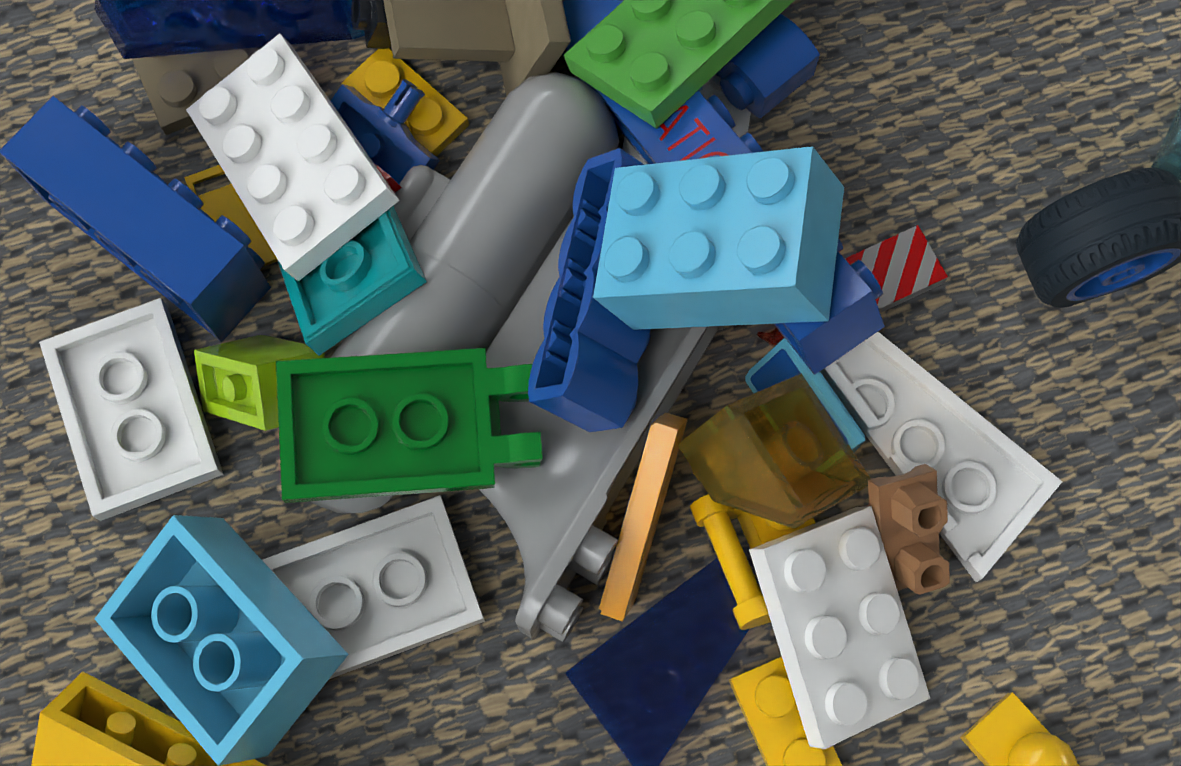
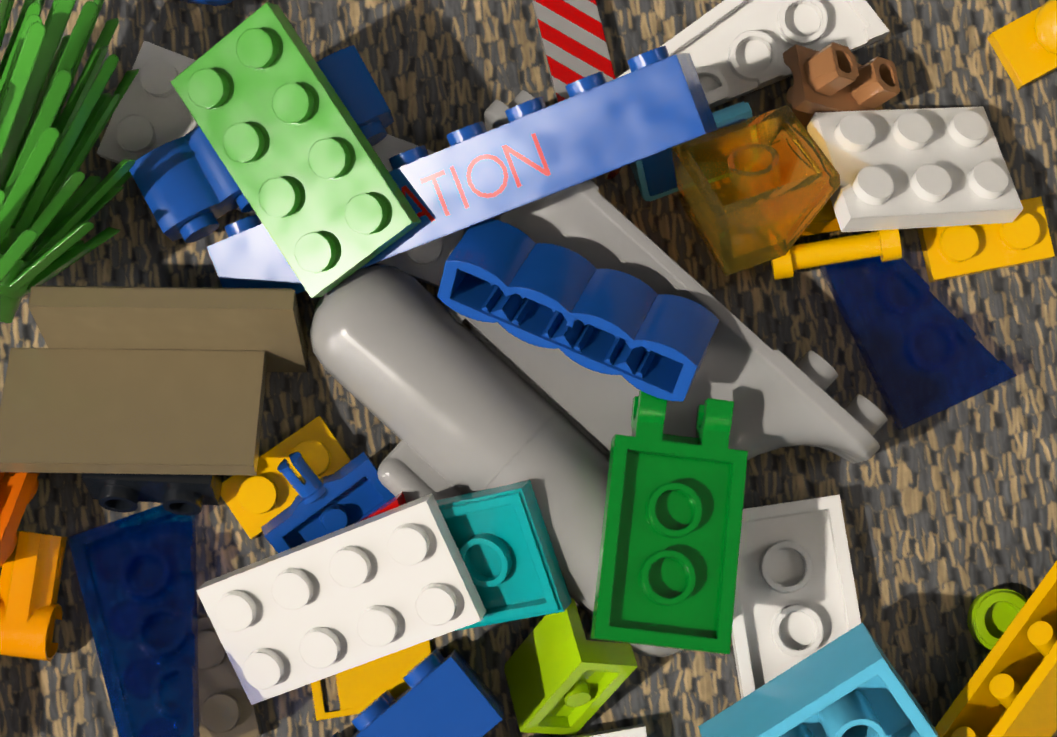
camera: 80 degrees left, 10 degrees up
(642, 515) = (780, 321): light orange tile -> none
(721, 241) = (590, 183): medium azure brick -> none

